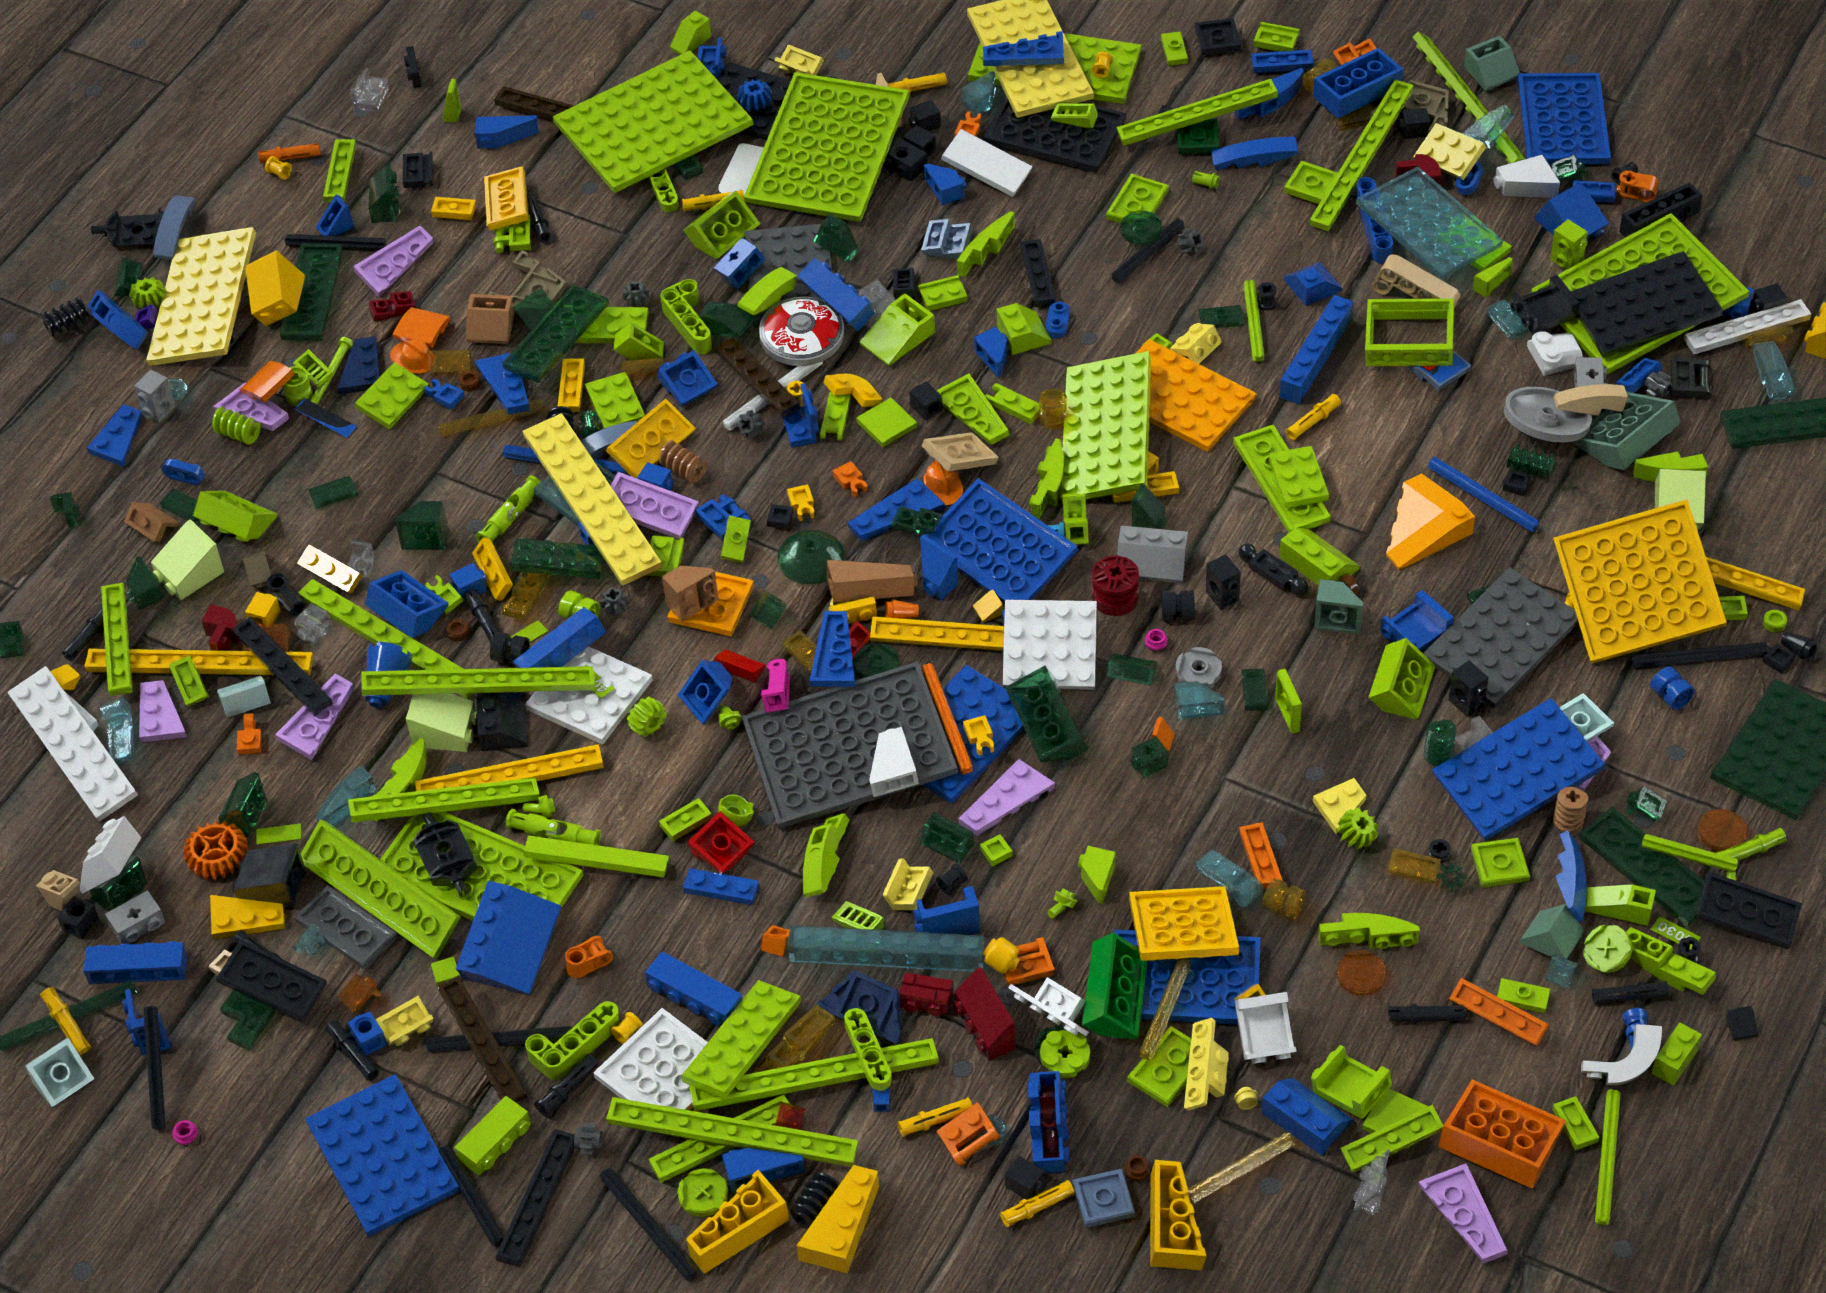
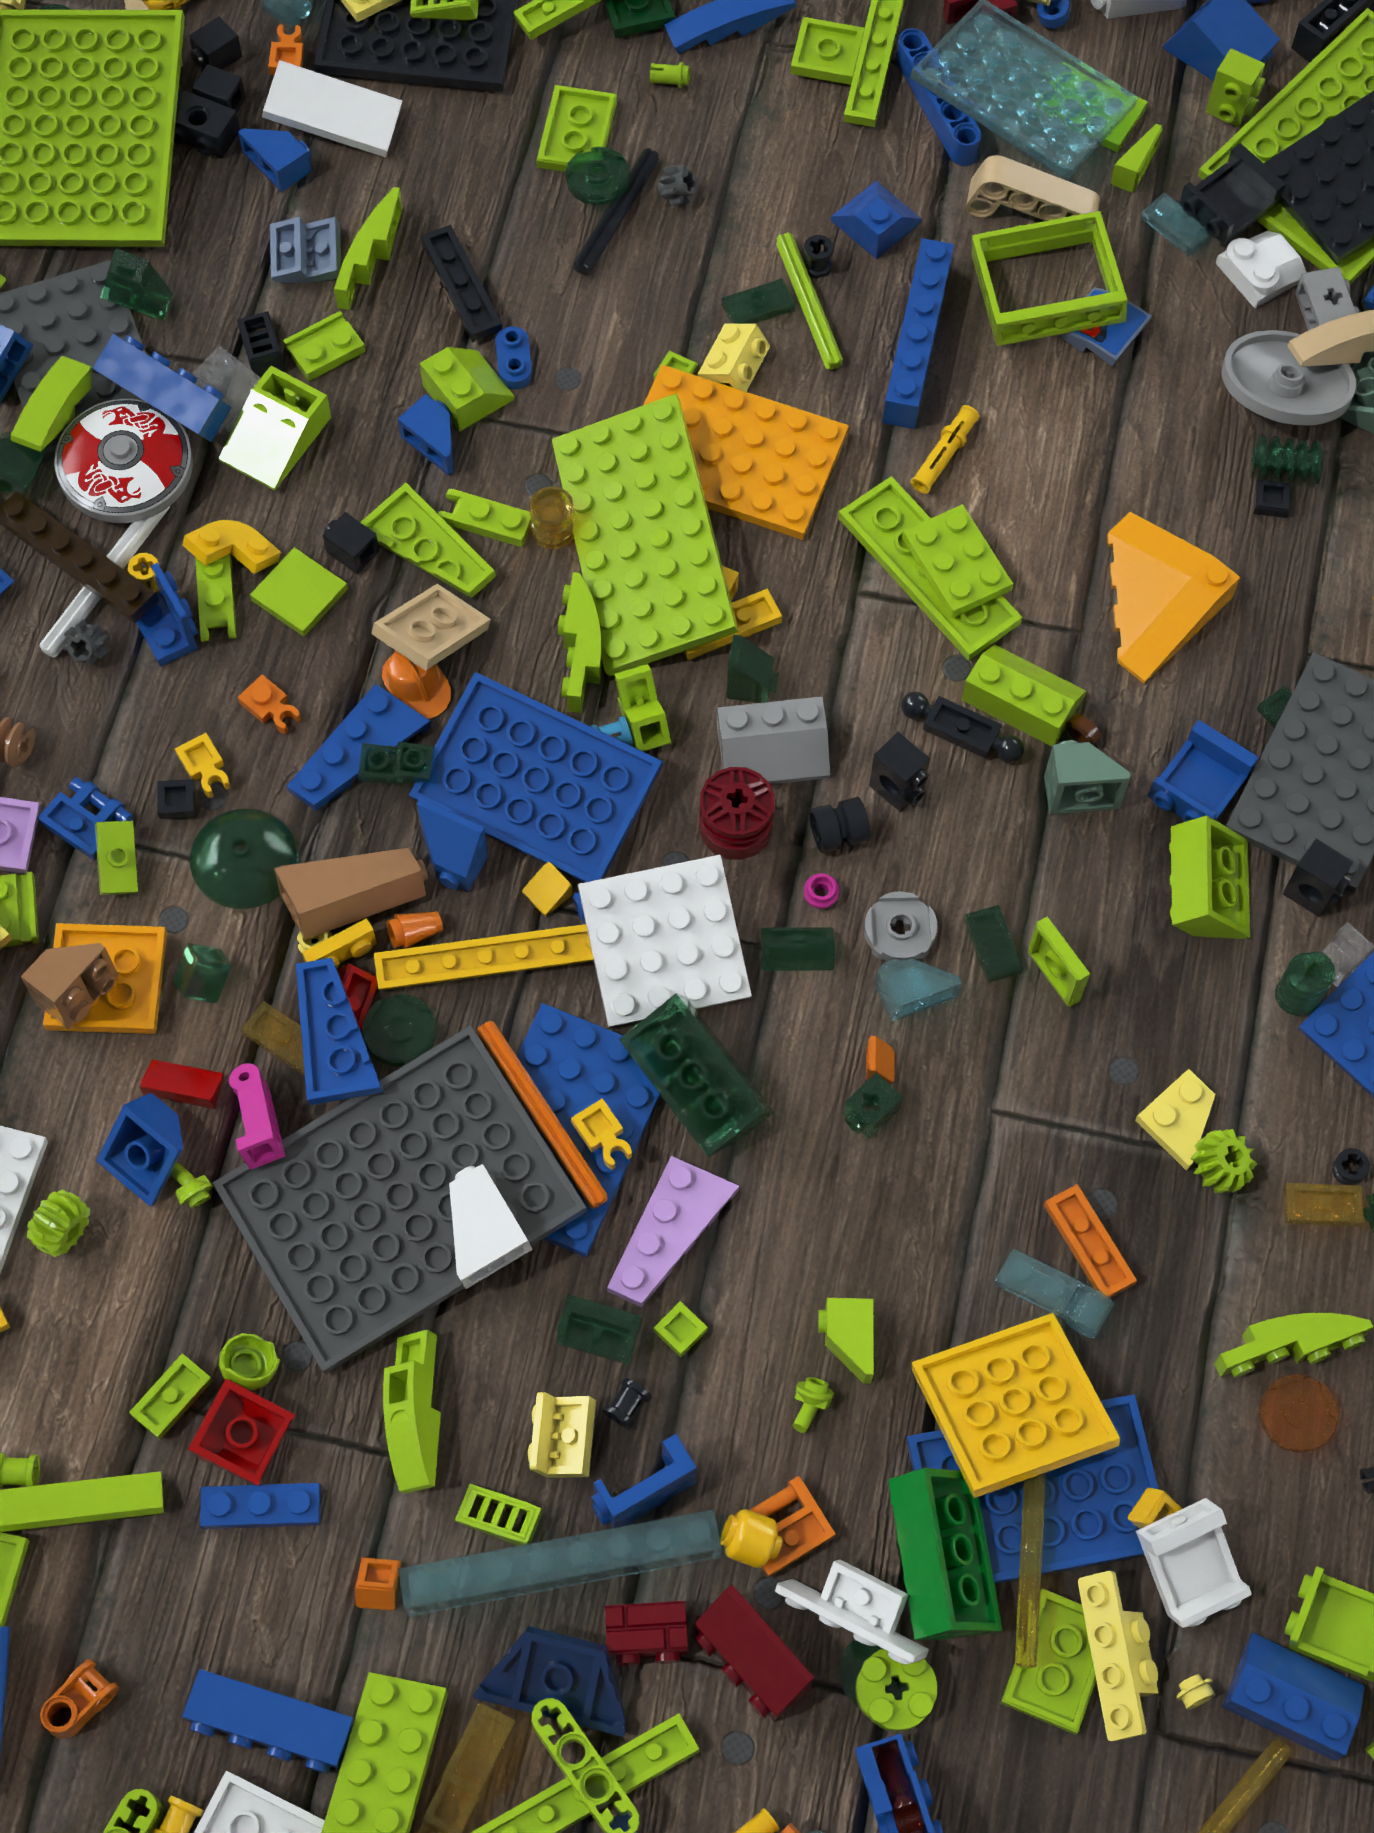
camera: 20 degrees left, 15 degrees up
(1276, 894) = (1136, 1316): clear yellow wheel -> none
(1484, 494) = (1231, 529): blue axle -> none

